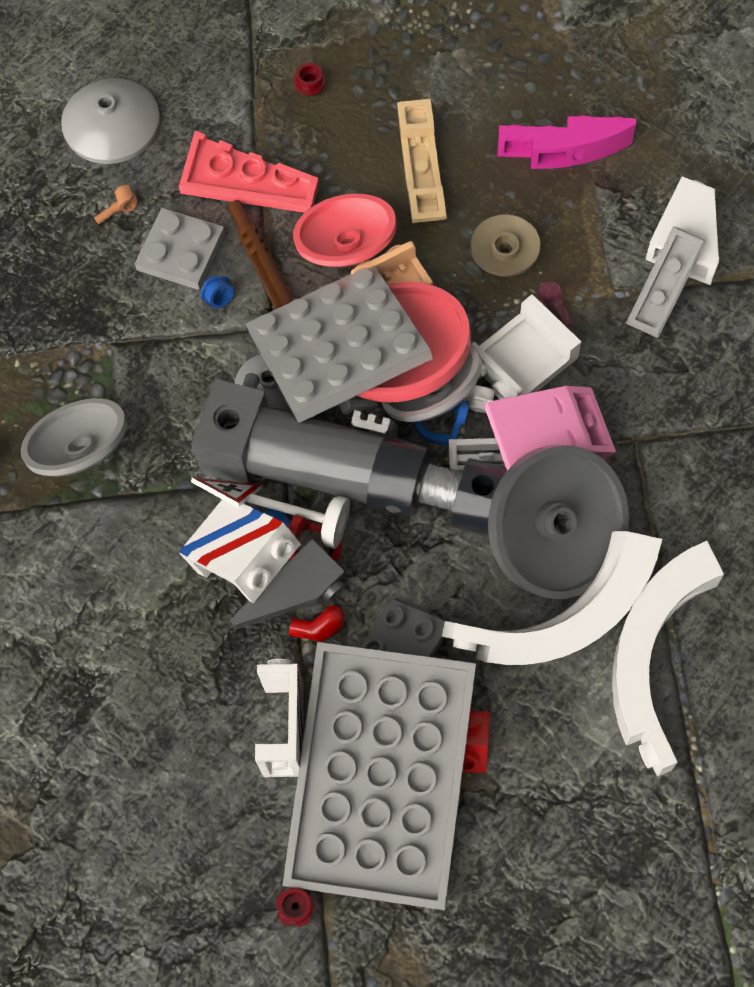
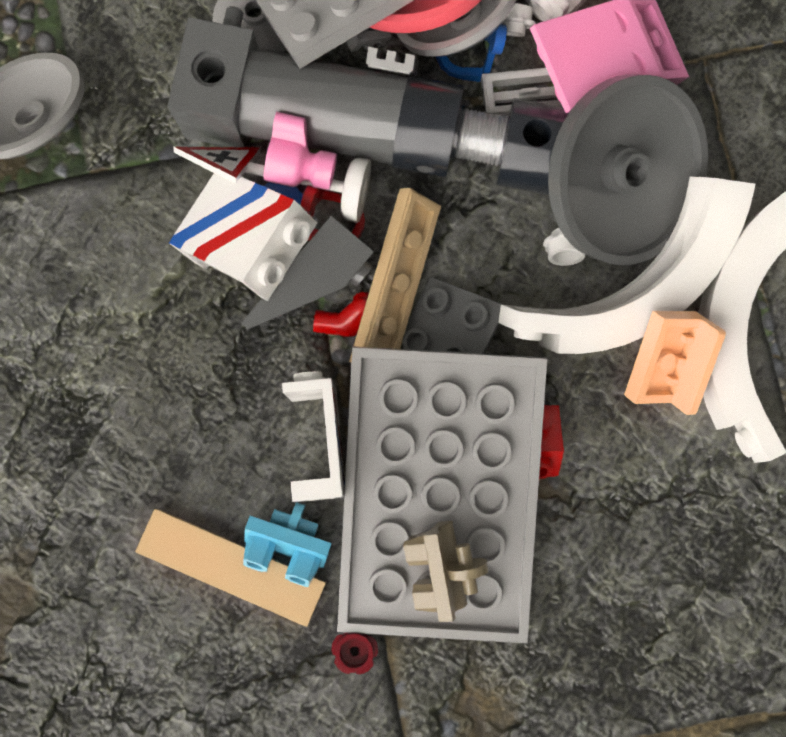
camera: 10 degrees left, 15 degrees up
(199, 825) = (220, 564): none -> tan tile
(249, 803) = (287, 536): none -> medium azure hips
(283, 491) = (289, 159): none -> bright pink piece
(365, 588) = (398, 271): none -> tan tile
(380, 834) = (450, 568): none -> dark tan hips
(502, 585) = (560, 250): none -> white plate
(586, 678) = (675, 360): none -> light nougat bracket

